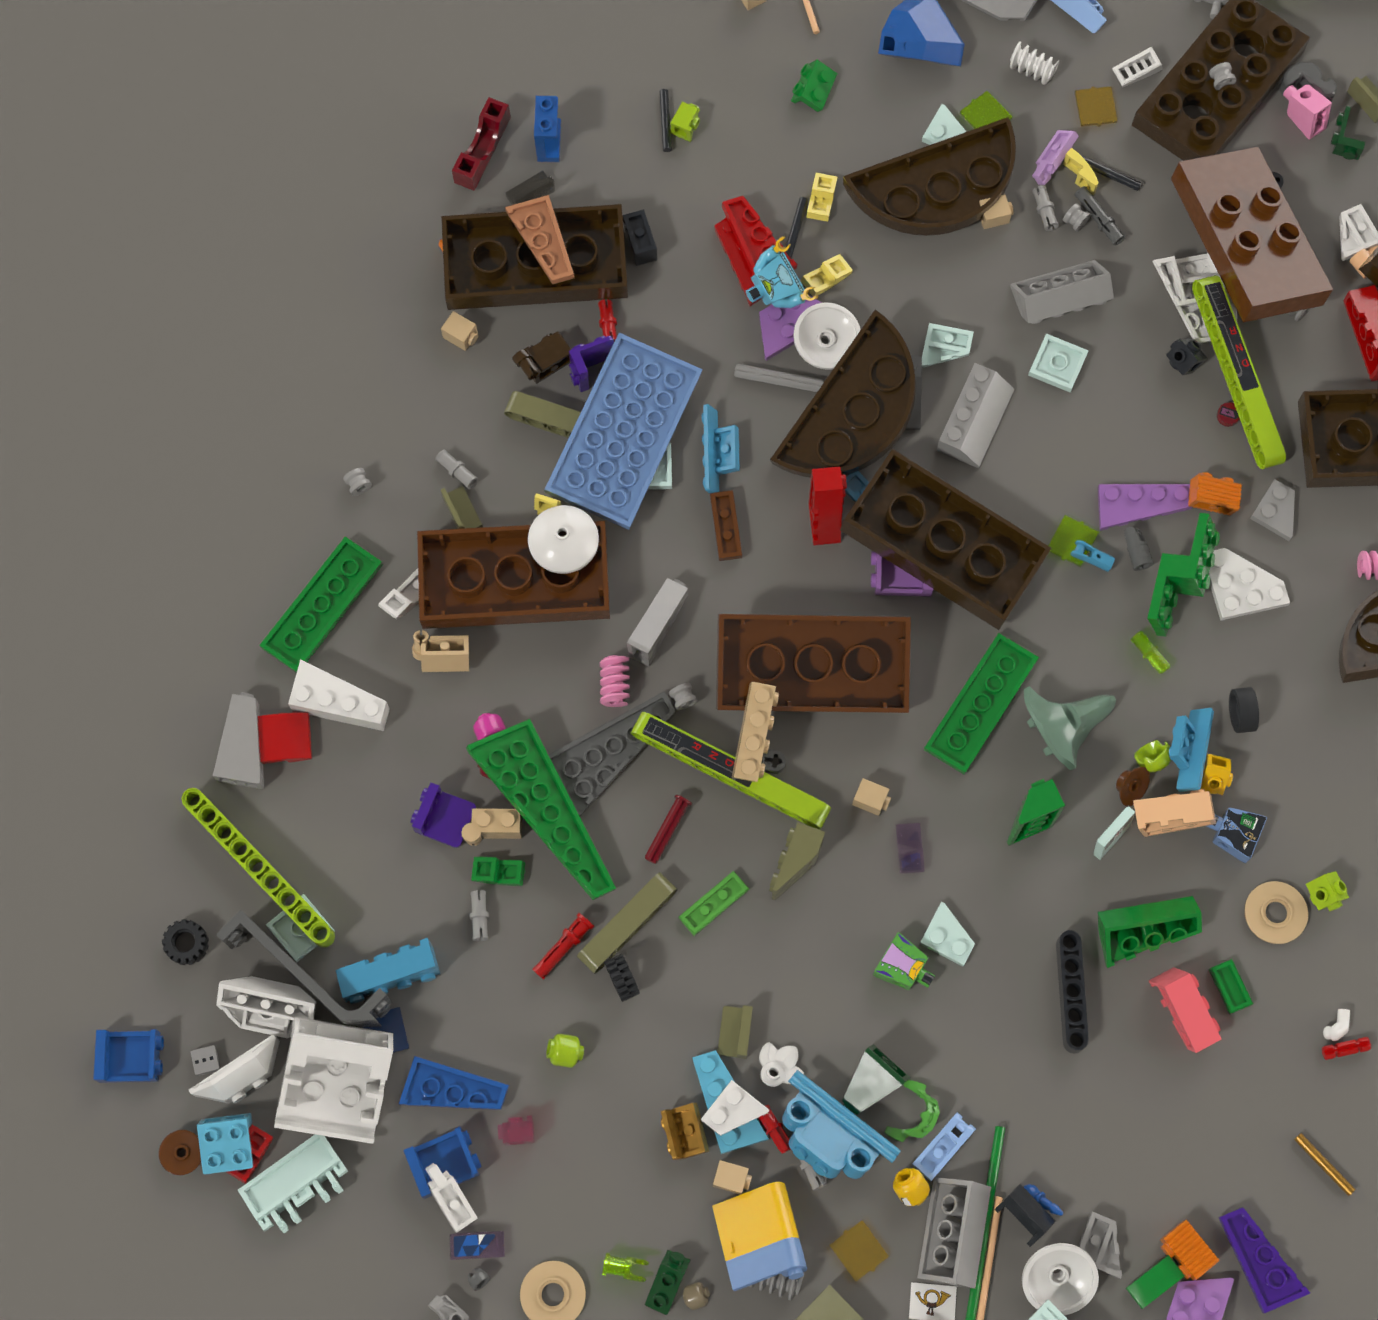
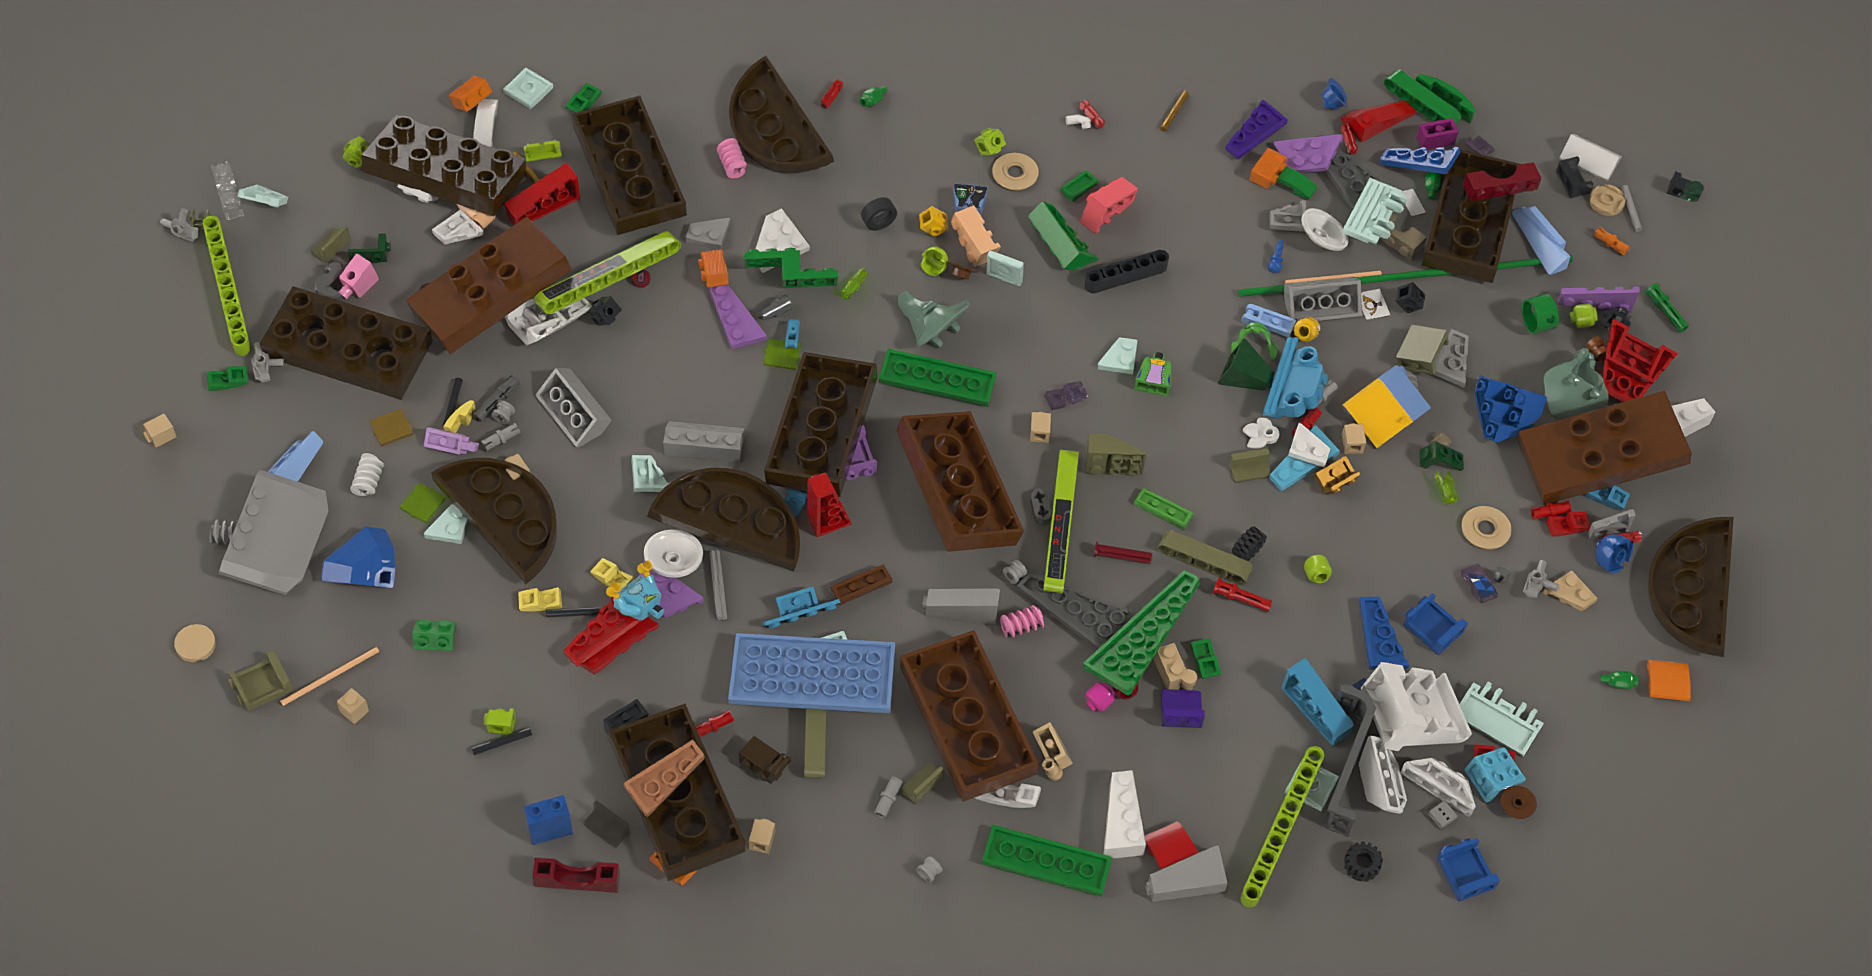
camera: 115 degrees left, 15 degrees down
(450, 1198) = (1458, 608): white hinge -> none
(479, 915) = (1245, 659): light grey pin -> none
(517, 1131) = (1389, 581): clear pink brick -> none
(543, 503) = (899, 709): light yellow slope -> none
(567, 552) = (928, 689): white dish -> none
(587, 355) = (762, 727): dark purple bracket -> none
(753, 732) = (1033, 497): tan brick -> none
(859, 1250) = (1361, 354): clear yellow piece -> none
(1027, 1212) = (1290, 258): black panel -> none
(1037, 812) = (1017, 309): green slope -> none
(1058, 363) = (637, 395): light aqua plate -> none
(1133, 61) = (343, 391): white slope -> none
(1190, 747) = (919, 236): dark azure bracket -> none
(1222, 75) = (352, 330): light grey wheel -> none

